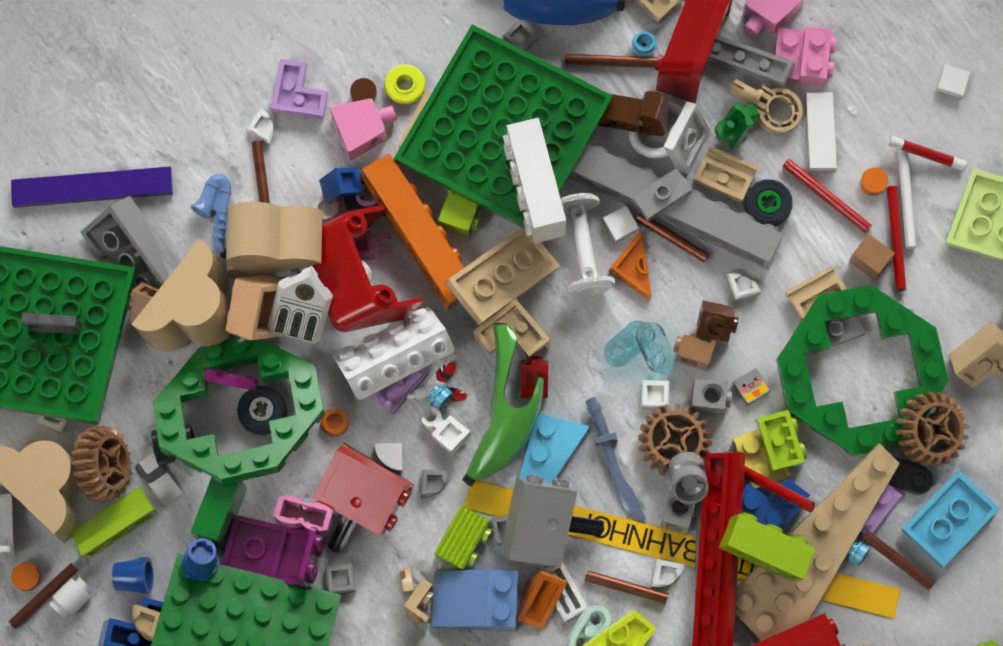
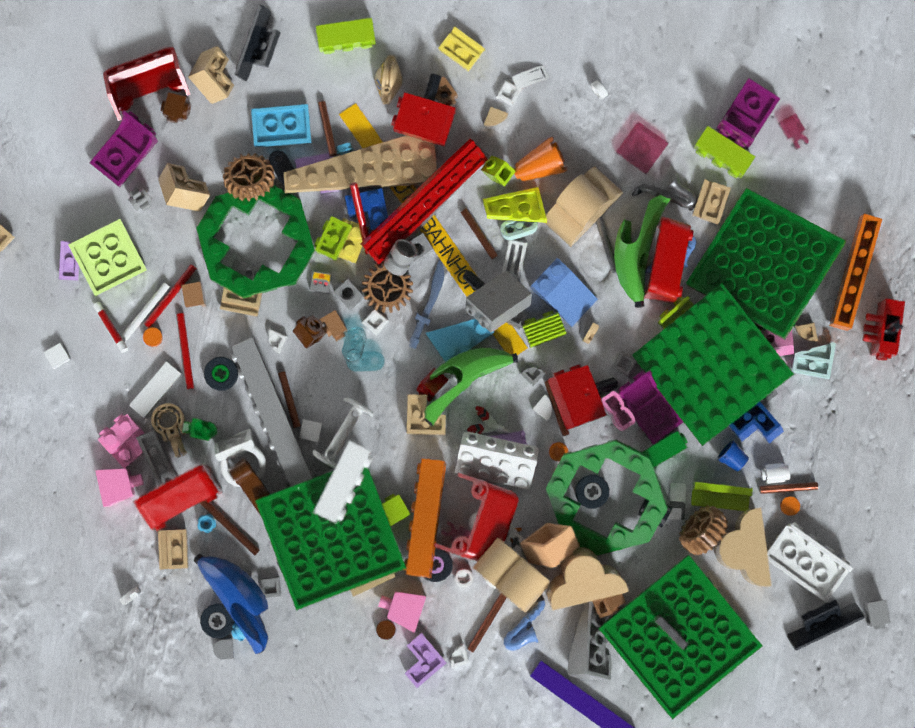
camera: 145 degrees left, 10 degrees up
(145, 621) = (748, 421): tan tile -> none
(200, 560) = (694, 429): blue piece -> none
(230, 379) = (599, 519): magenta tile -> none
(300, 307) = (528, 524): white tile -> none
(341, 183) = (446, 581): blue panel -> none
(400, 73) = (349, 614): neon yellow piece -> none
(420, 597) = (592, 317): tan bracket -> none
(439, 396) = (491, 416): medium azure plate -> none
(447, 433) = (503, 392): white plate -> none
(501, 275) = (403, 452): tan plate -> none
(540, 598) = (530, 264): orange slope -> none
(632, 267) = (325, 402): orange tile -> none
(662, 194) = (277, 423): light grey plate -> none
(666, 573) = (452, 223): white tile -> none
(725, 174) = (229, 409): tan plate -> none
(767, 547) = (393, 184): lime brick -> none

